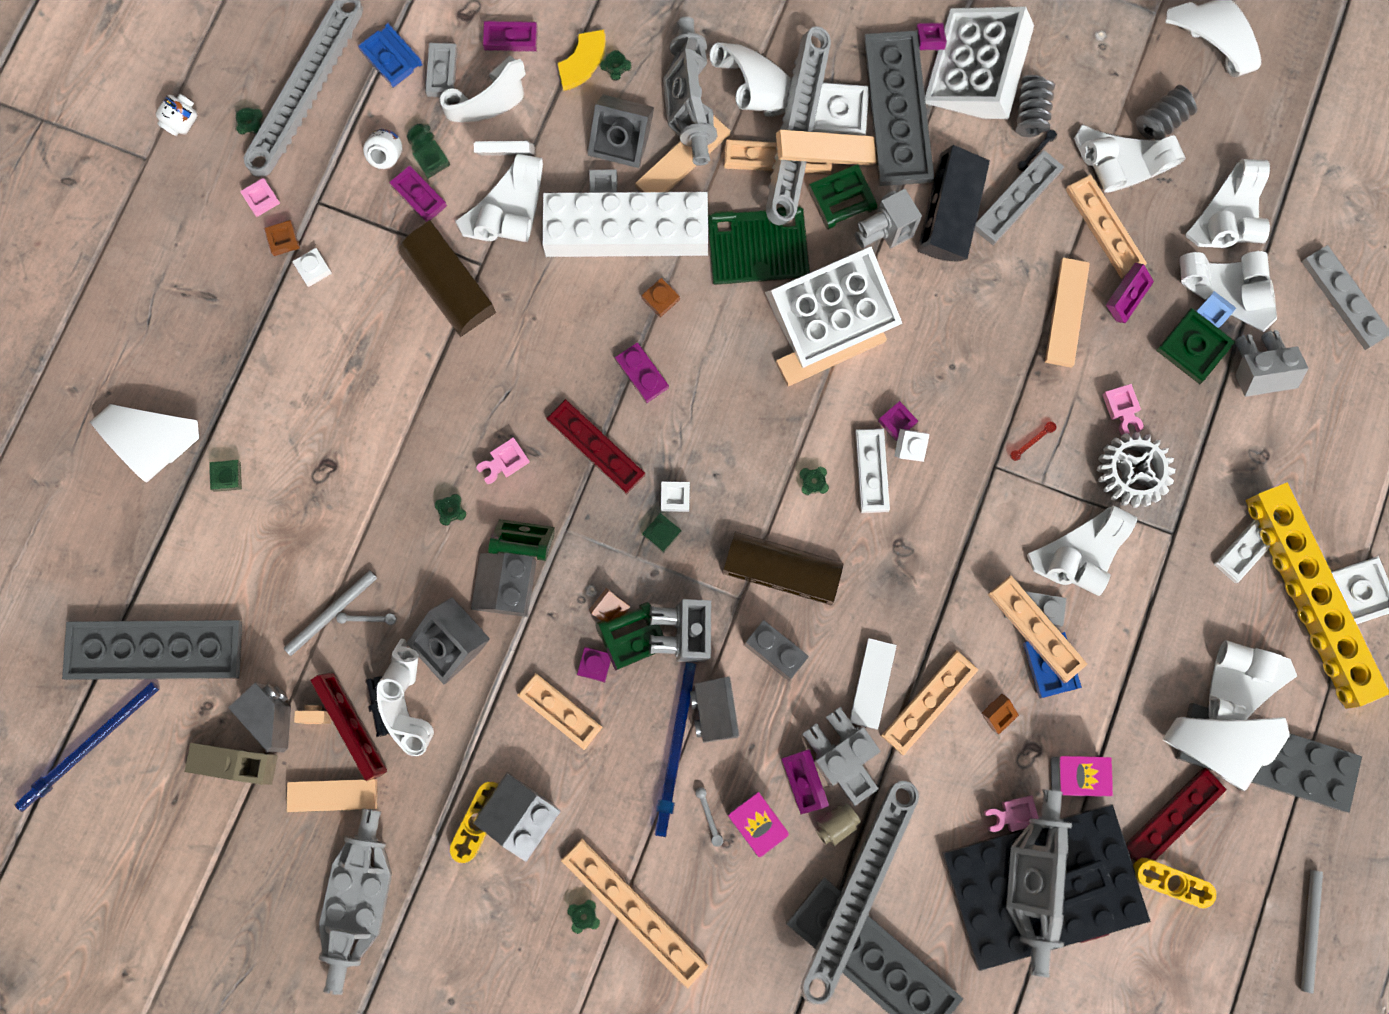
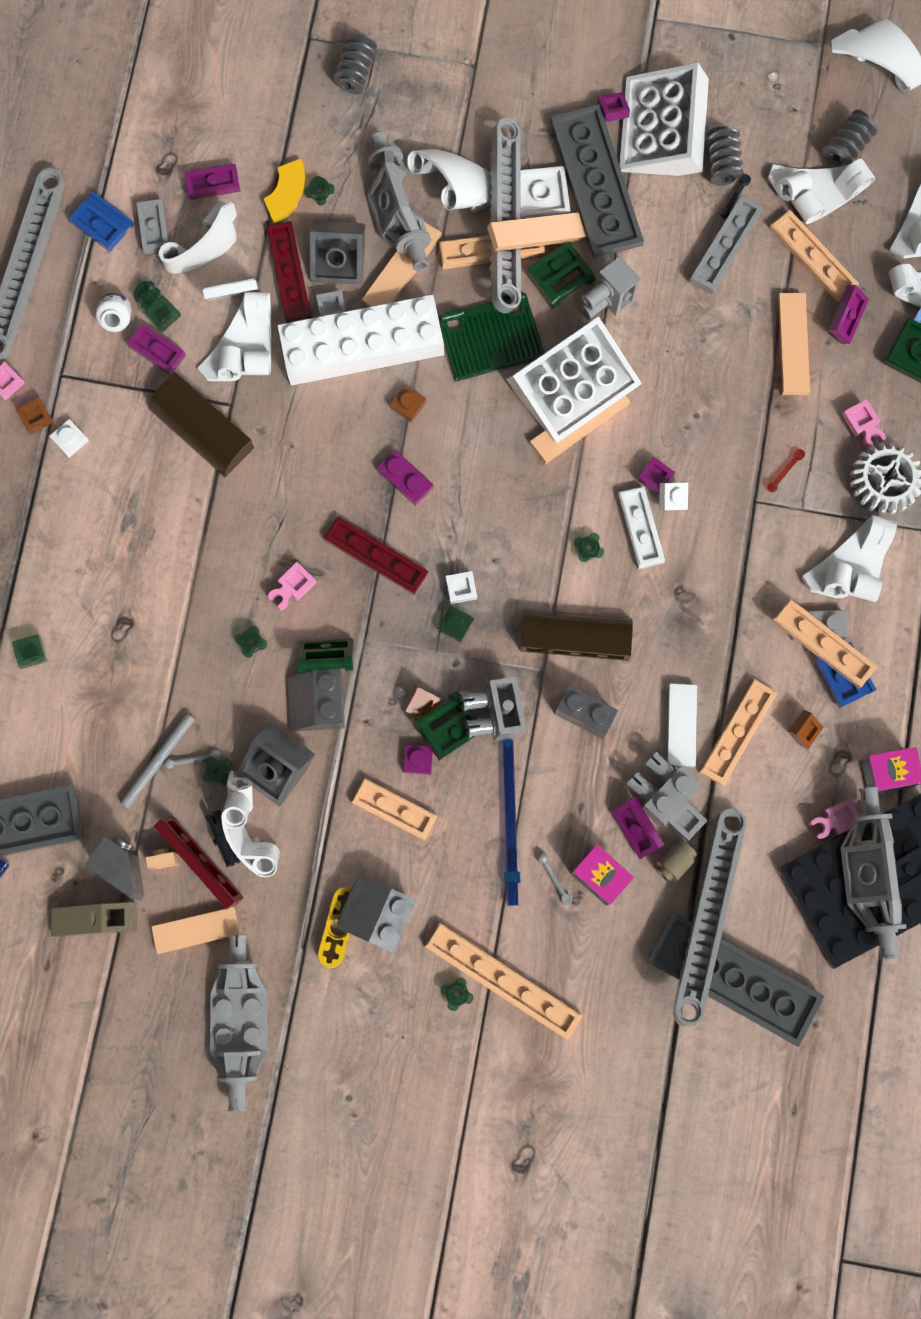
camera: 10 degrees left, 0 degrees up
(380, 636) = (212, 764): none -> clear green plate
(568, 142) = (289, 272): none -> dark red tile
(715, 710) = (541, 778): flat silver slope -> none
(953, 205) = (667, 263): black brick -> none

